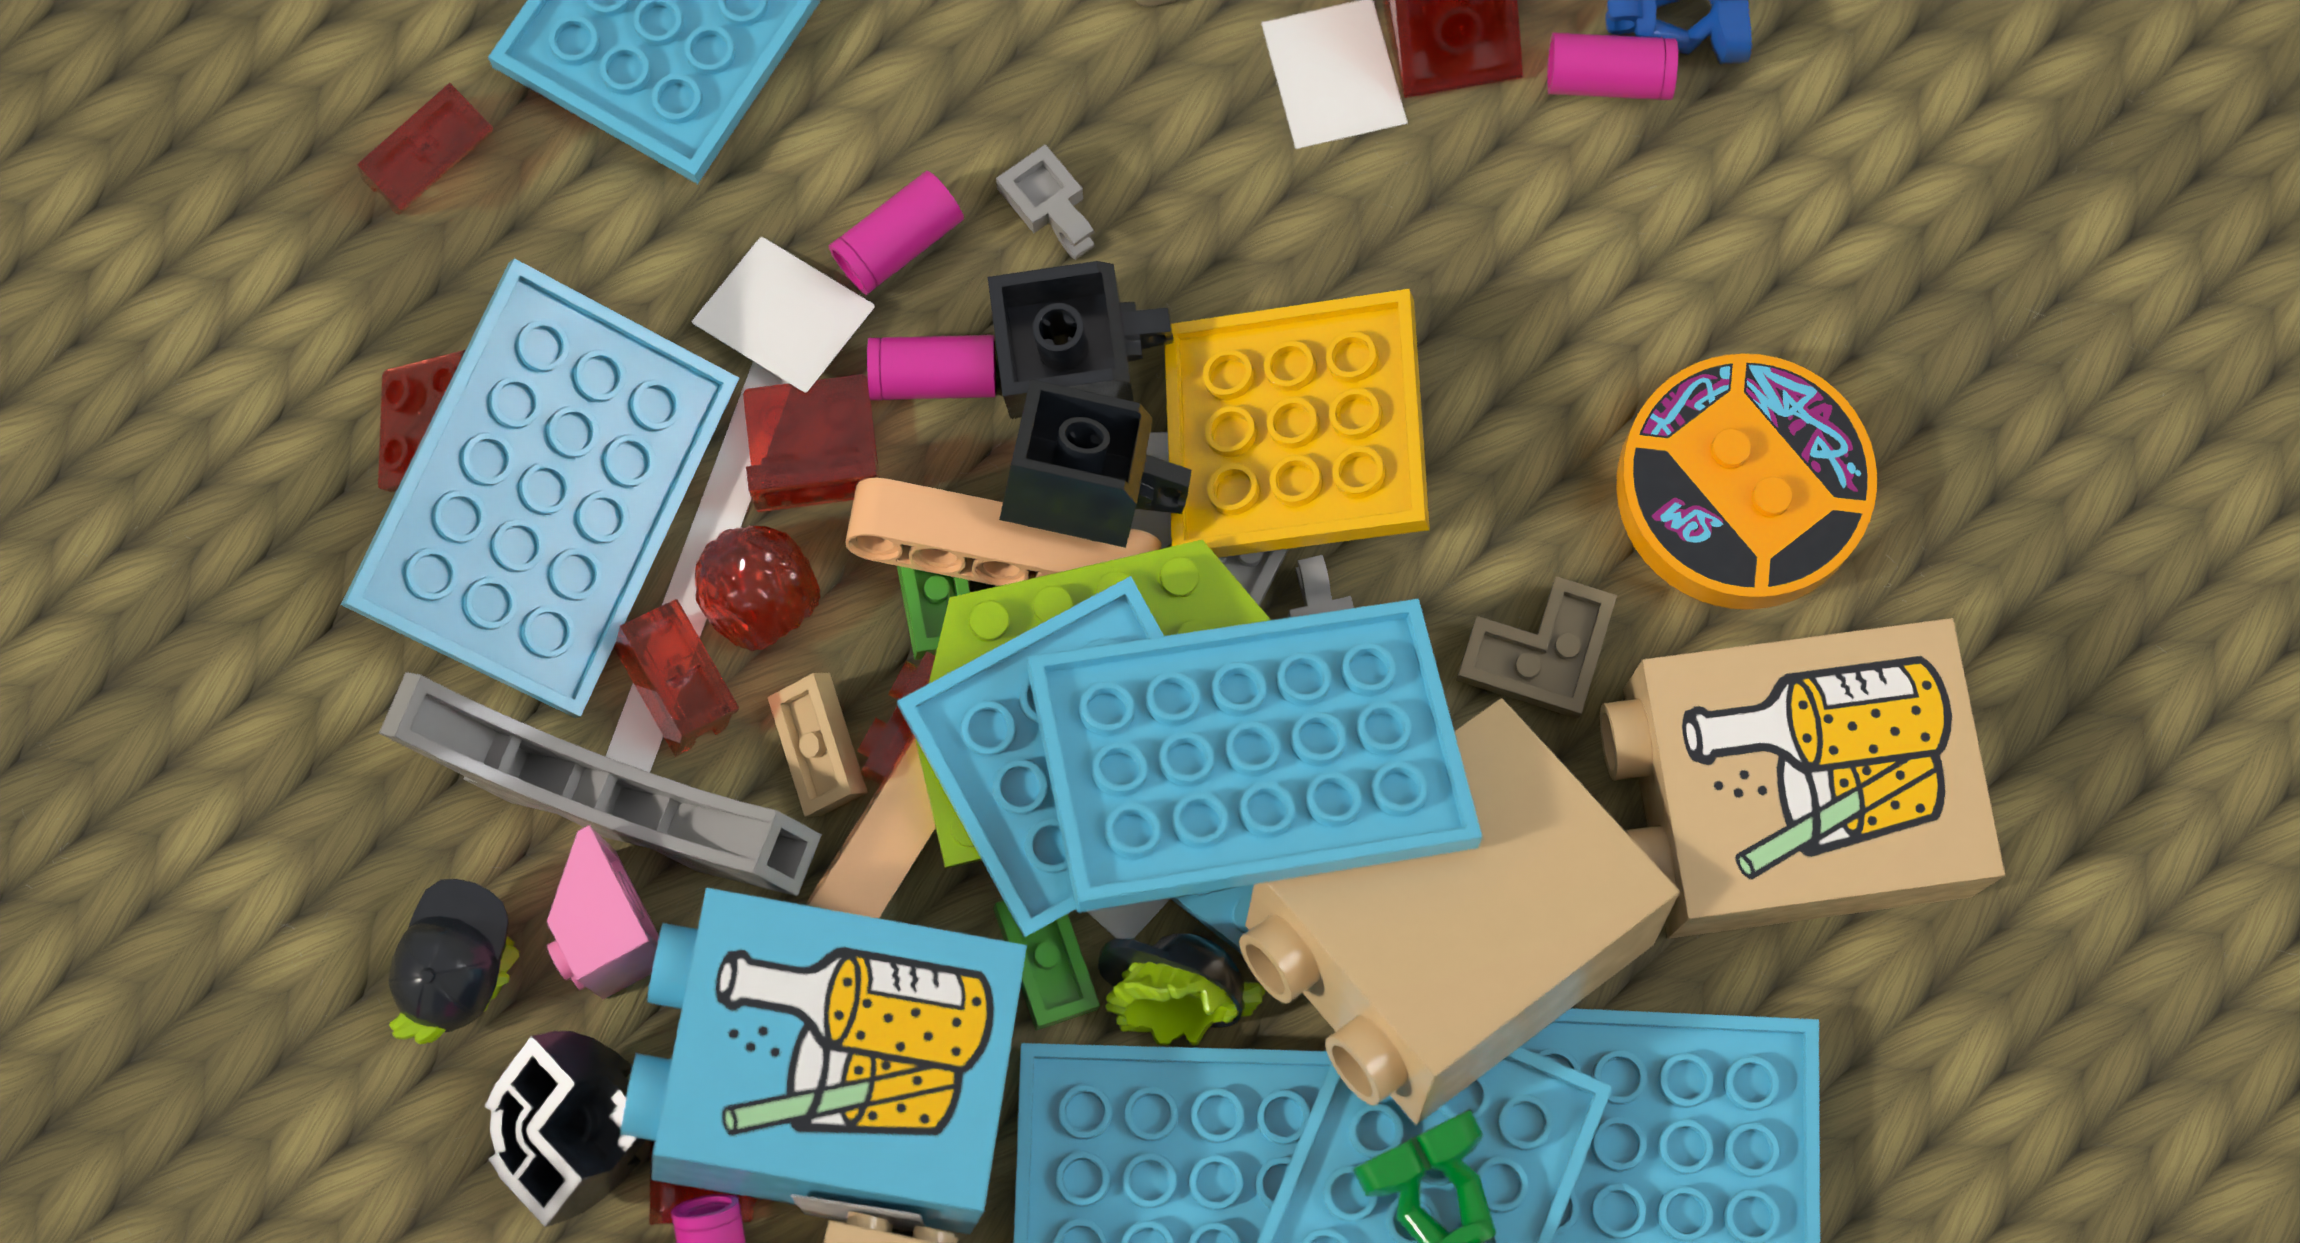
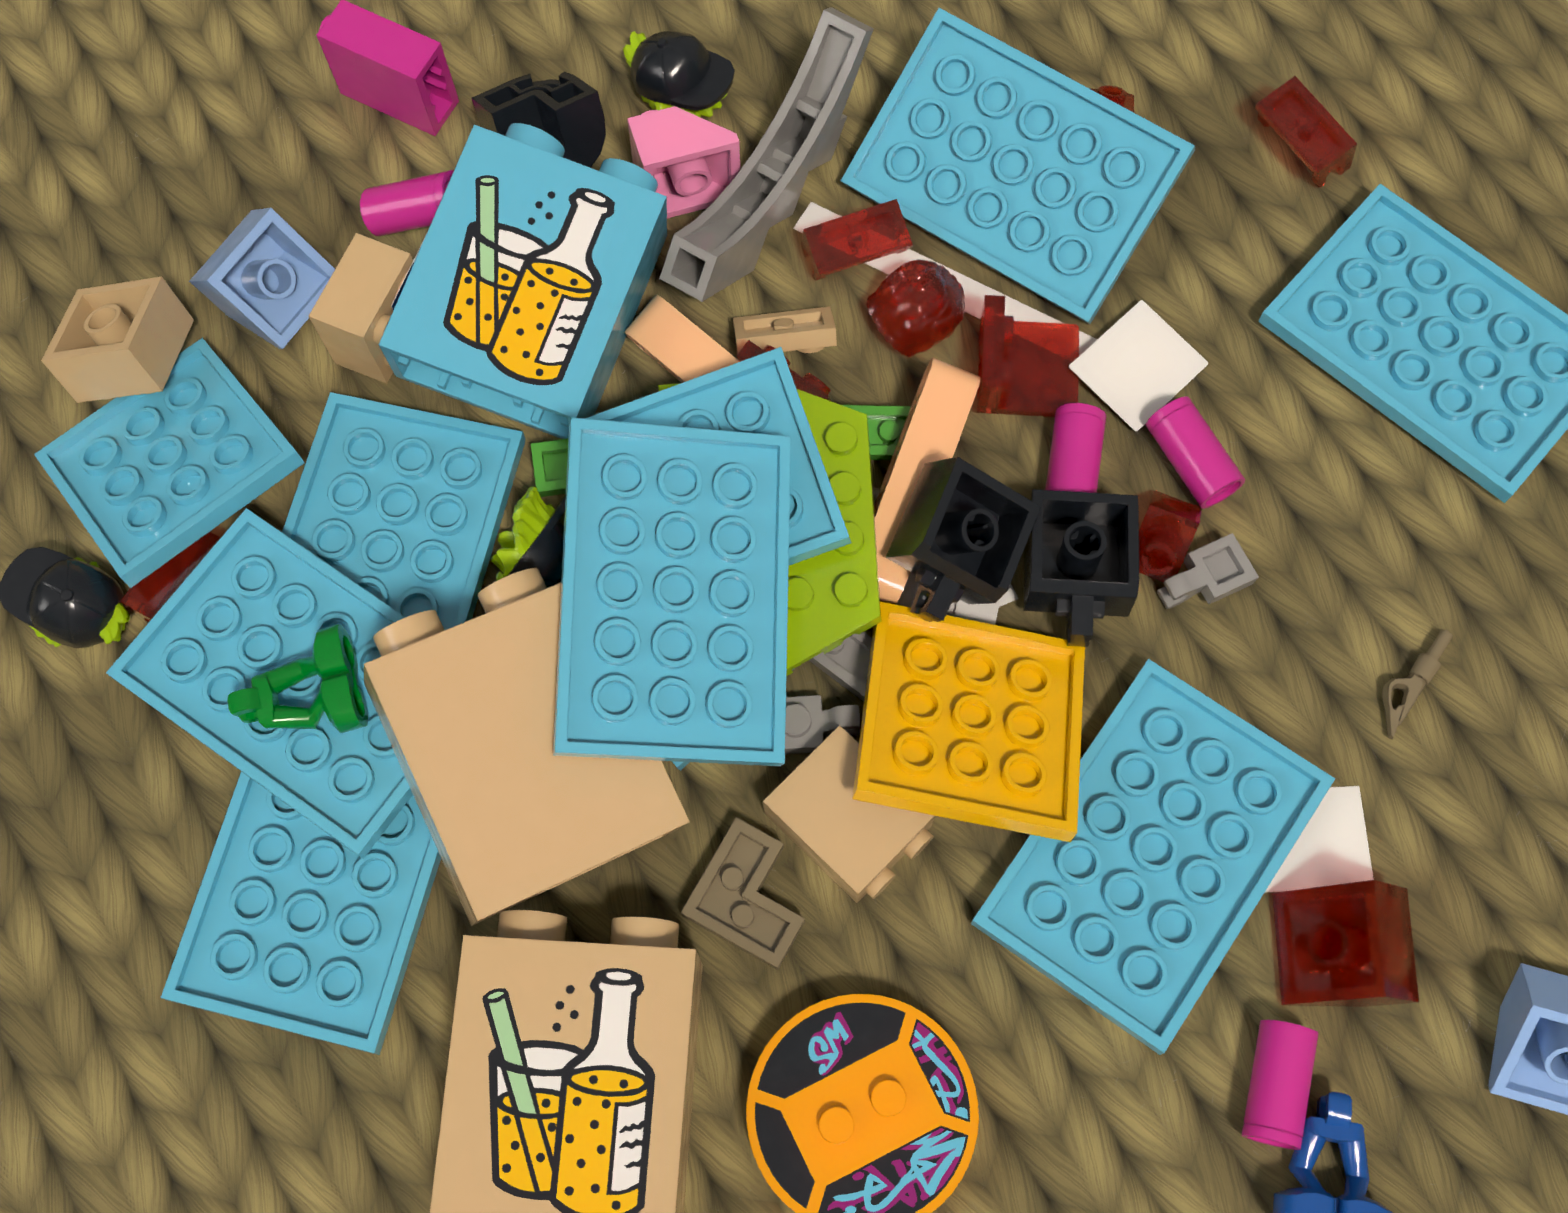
camera: 105 degrees right, 5 degrees down
(1008, 247) = (1166, 535): none -> clear red bracket
(1370, 193) = (1168, 860): none -> medium azure plate
(1434, 565) = (845, 836): none -> tan brick

